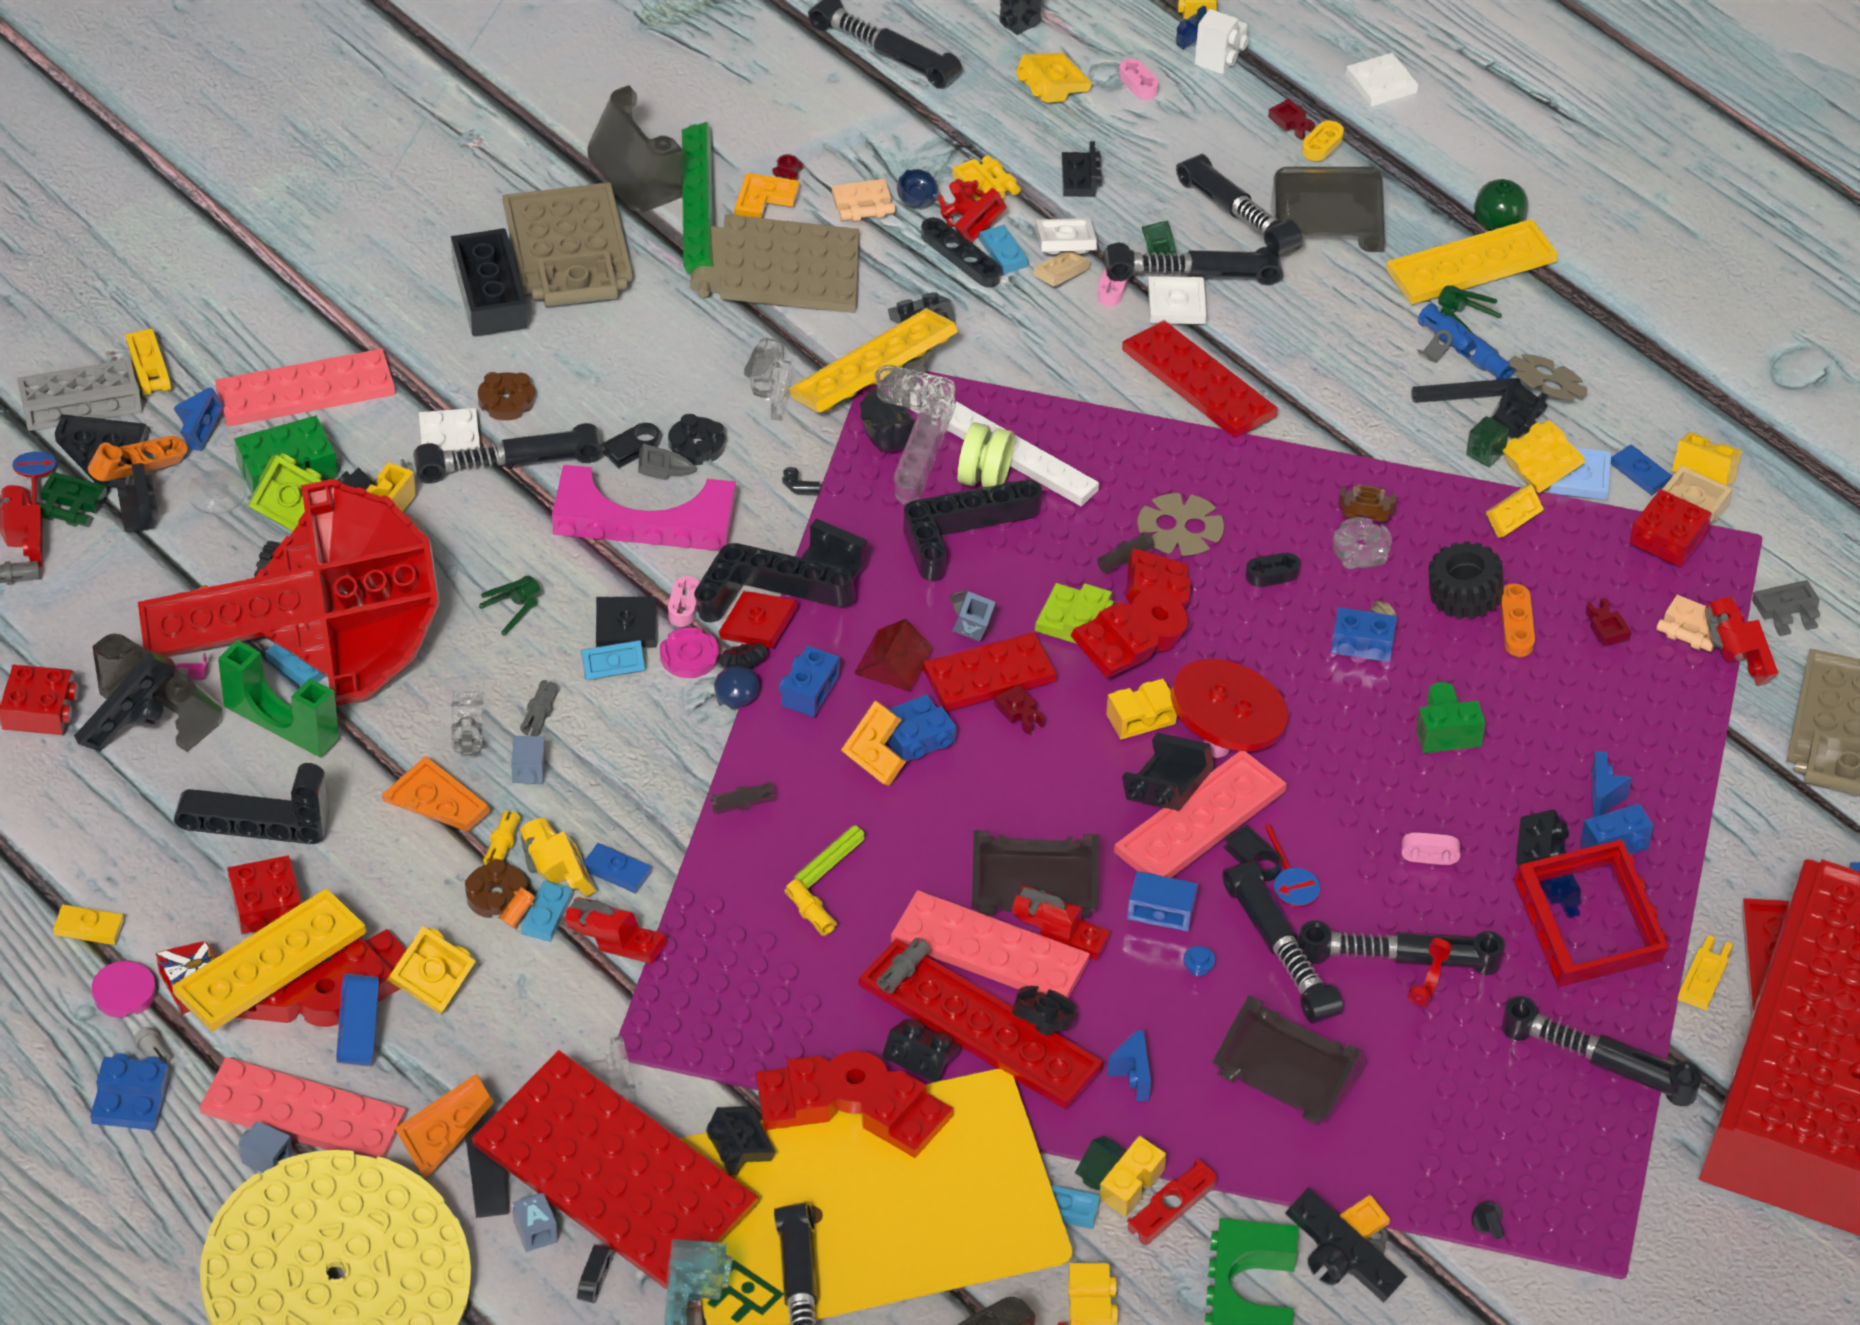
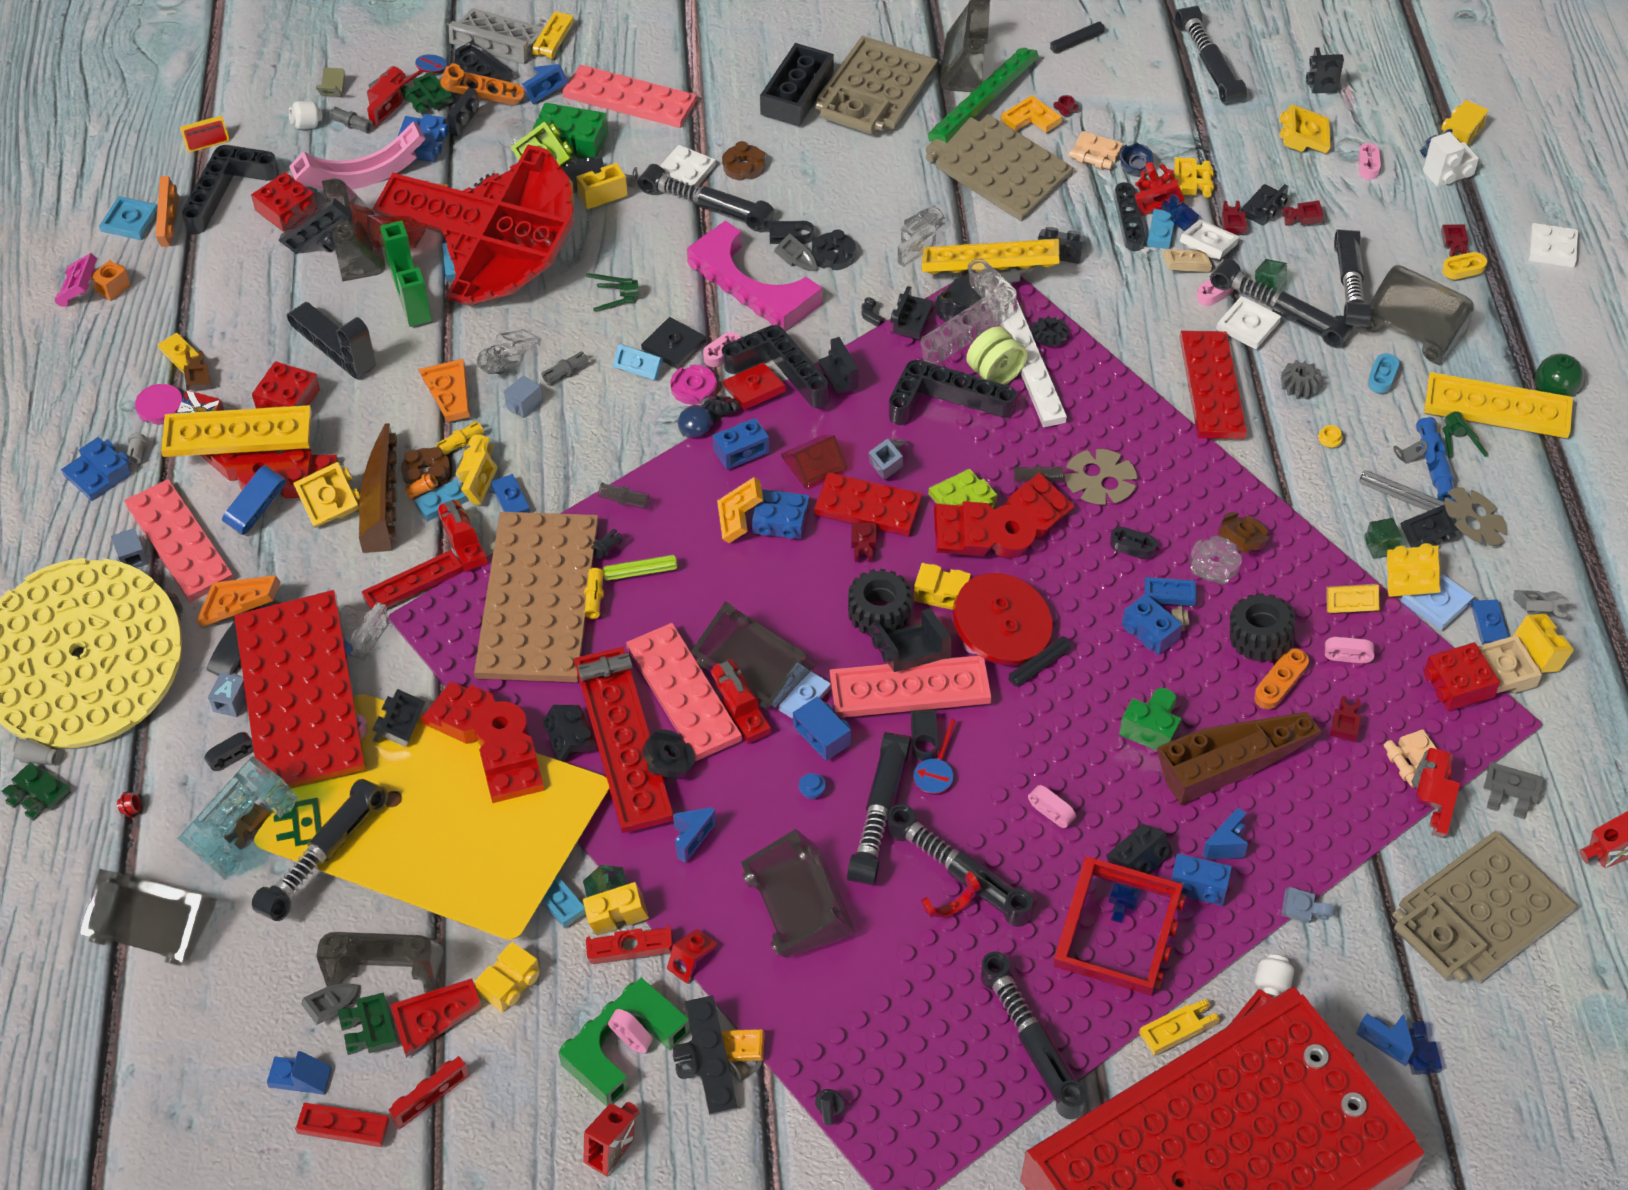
camera: 40 degrees right, 5 degrees up
(96, 612) = (364, 170): none -> bright pink arch
(119, 550) = (434, 130): none -> blue plate
(136, 934) = (196, 372): none -> reddish brown plate
(201, 660) = (413, 228): none -> clear red slope
(501, 951) = (378, 495): none -> reddish brown wedge
(606, 1006) = (413, 580): none -> red plate
(728, 88) = (1077, 37): none -> black axle
(753, 944) = (536, 597): none -> medium nougat plate
(773, 858) = (608, 542): none -> black pin
(852, 462) = (911, 314): none -> black bracket
(1006, 414) = (1050, 337): none -> black gear
(1016, 223) = (1182, 214): none -> clear blue plate
(1066, 205) = (1233, 220): none -> dark red plate
(1105, 738) = (883, 587): none -> black tyre
(1112, 886) = (804, 692): none -> light blue plate
(1129, 161) = (1305, 212): none -> dark red plate
(1237, 1167) = (689, 950): none -> red bracket
(1255, 1270) = (630, 1031): none -> bright pink beam
(1277, 330) = (1301, 379): none -> dark grey gear
(1294, 726) = (1039, 661): none -> black axle
(1344, 285) = (1383, 373): none -> dark azure plate
(1350, 594) = (1171, 591): none -> blue plate
(1351, 371) = (1330, 436): none -> yellow plate
(1539, 708) = (1230, 752): none -> reddish brown wedge
(1554, 559) = (1349, 650): none -> bright pink beam
(1671, 425) = (1536, 602): none -> plate
(1713, 809) = (1301, 906): none -> sand blue plate
(1745, 879) = (1274, 975): none -> white head

